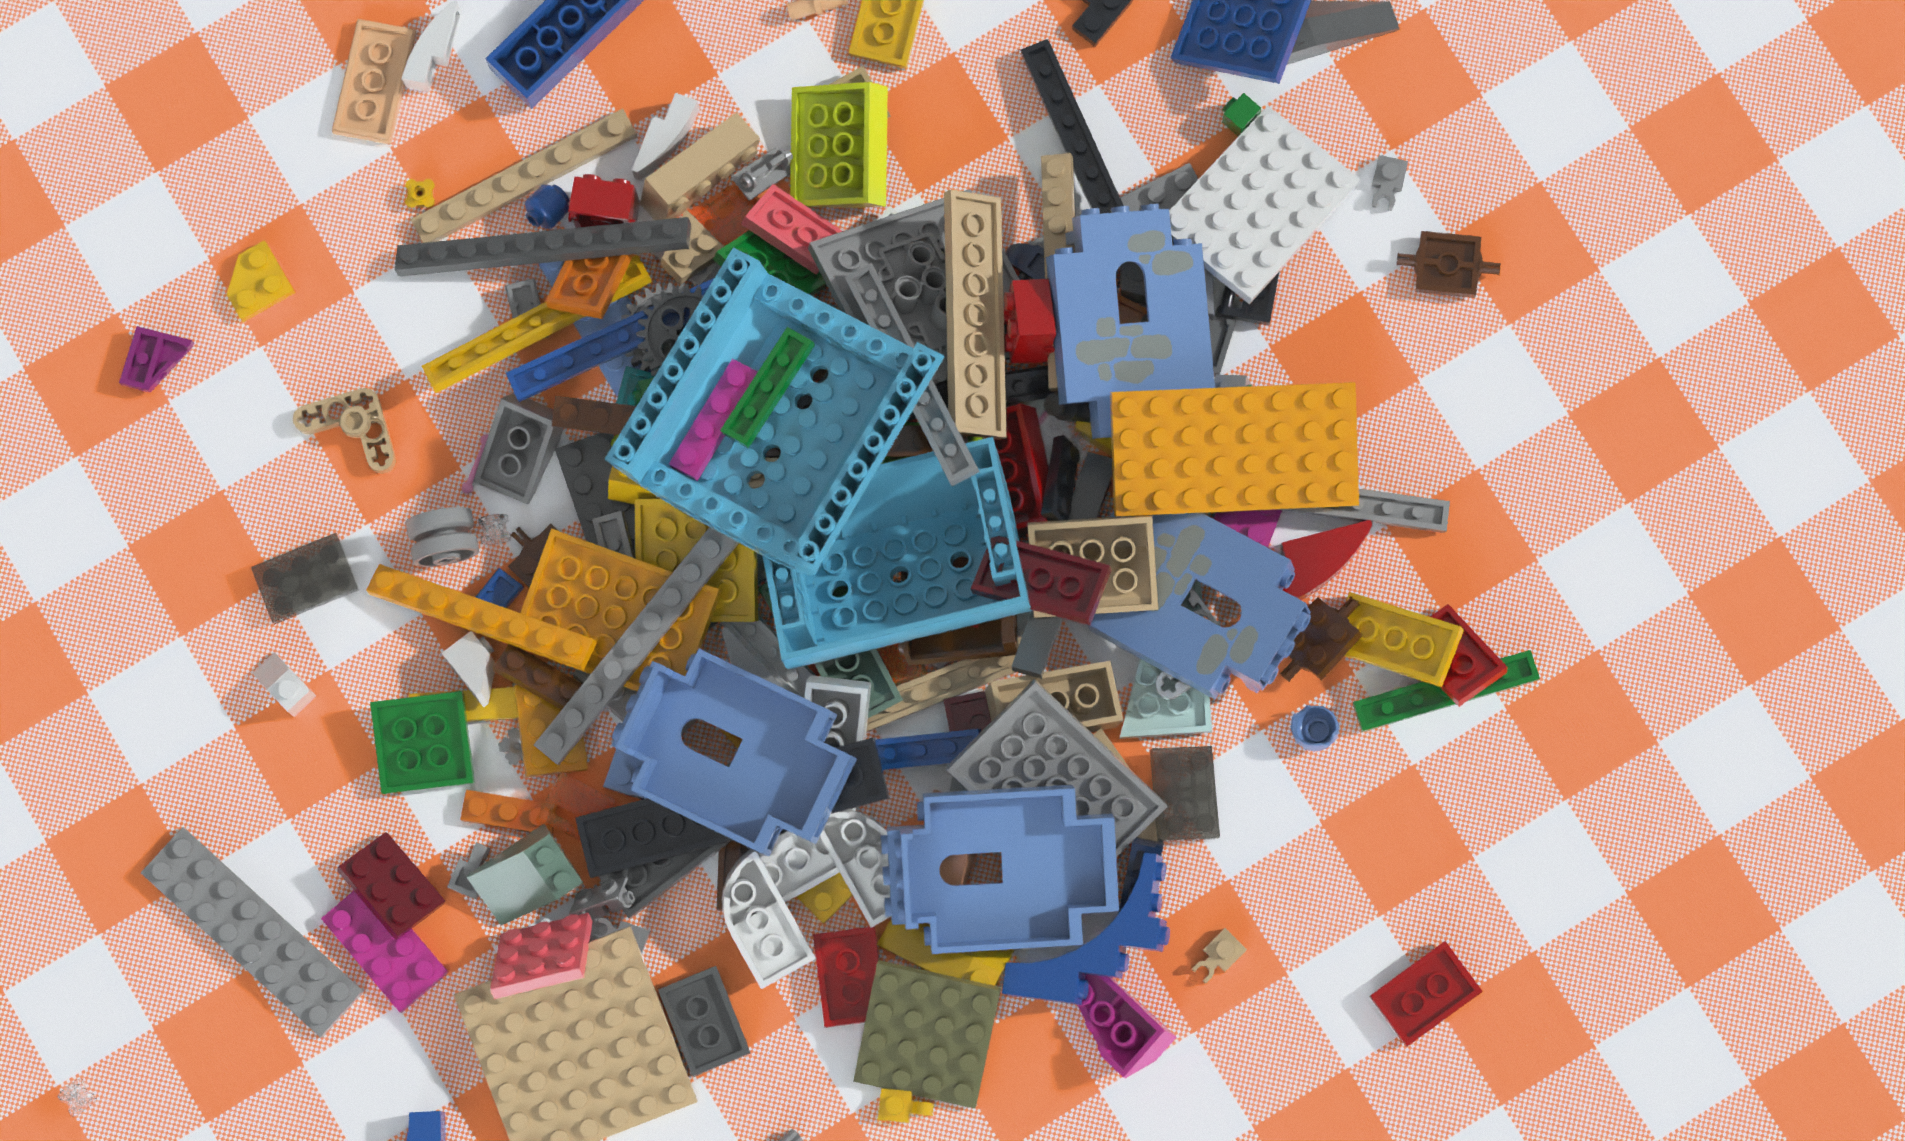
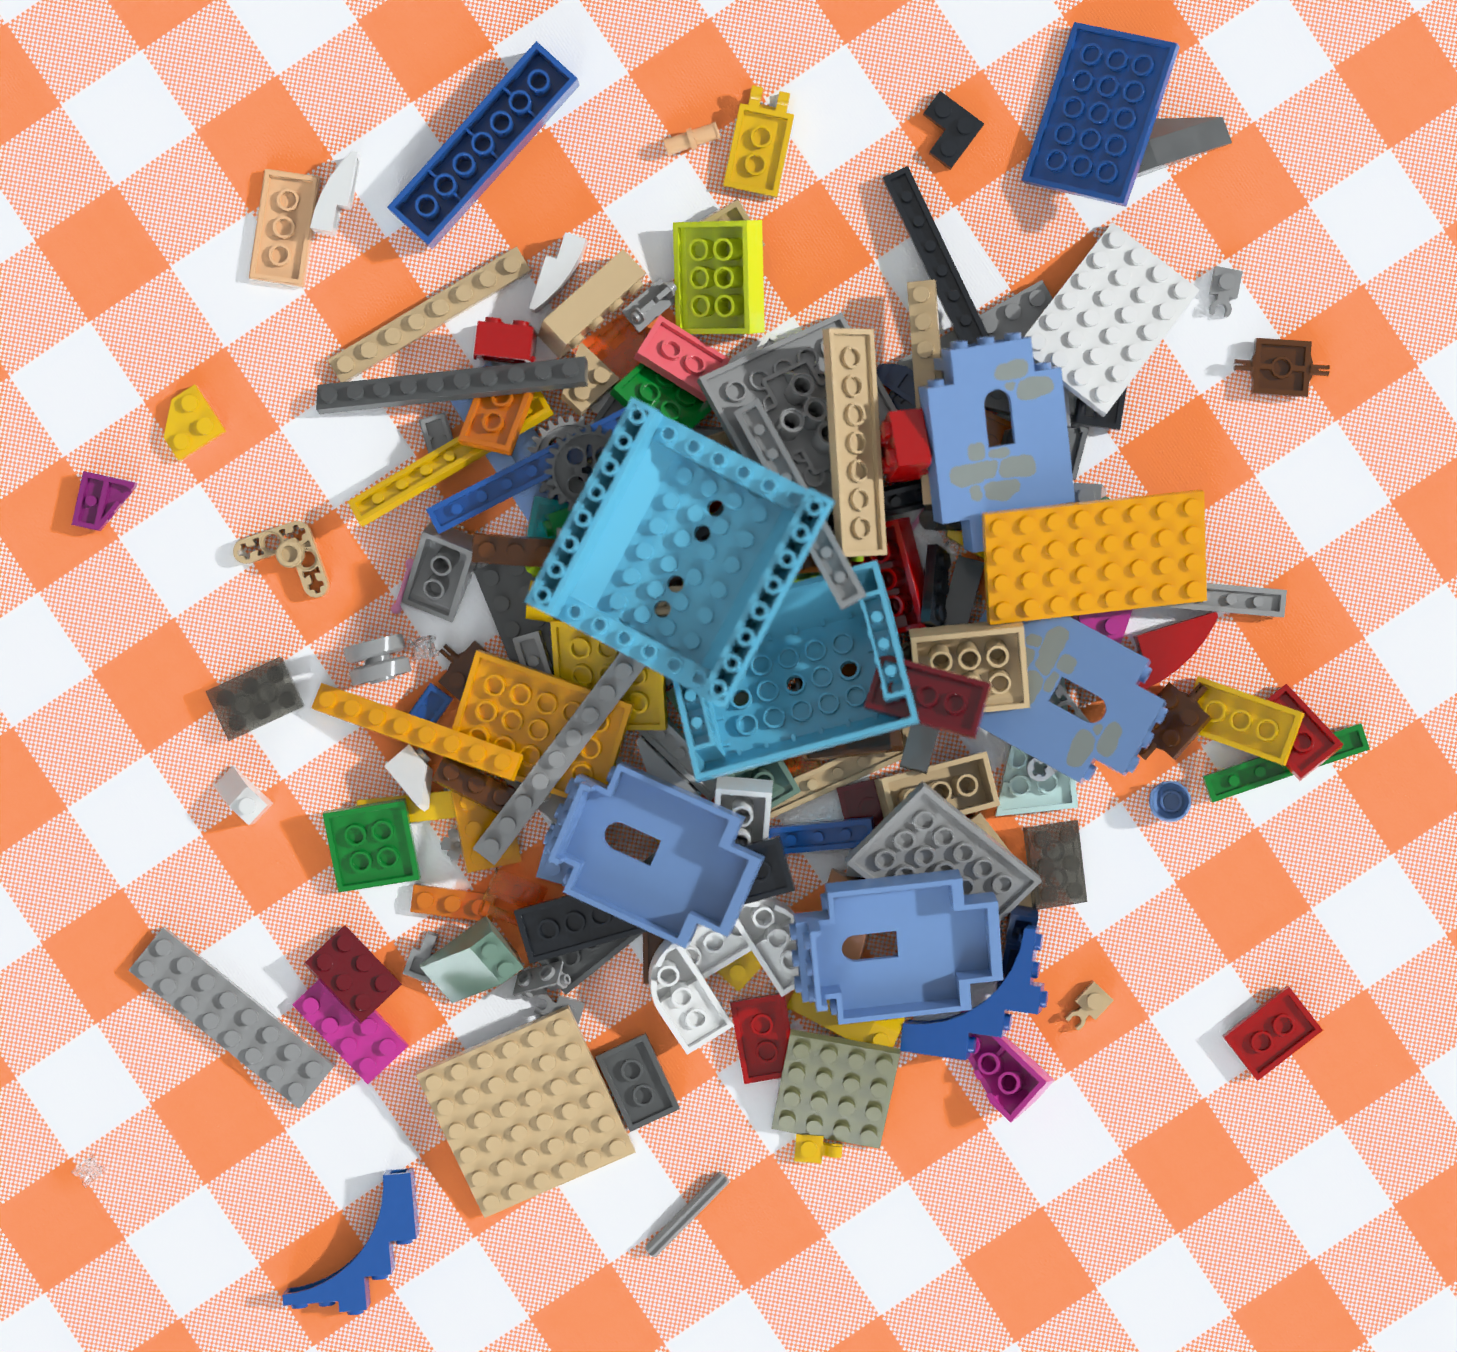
camera: 10 degrees left, 10 degrees up
(426, 199) = (341, 338): yellow plate -> none
(541, 955) = (491, 1037): coral plate -> none
(547, 206) = (452, 343): blue head -> none
(705, 432) = (622, 554): dark pink plate -> none
(767, 387) = (669, 524): green plate -> none
(1240, 113) = (1087, 232): green plate -> none

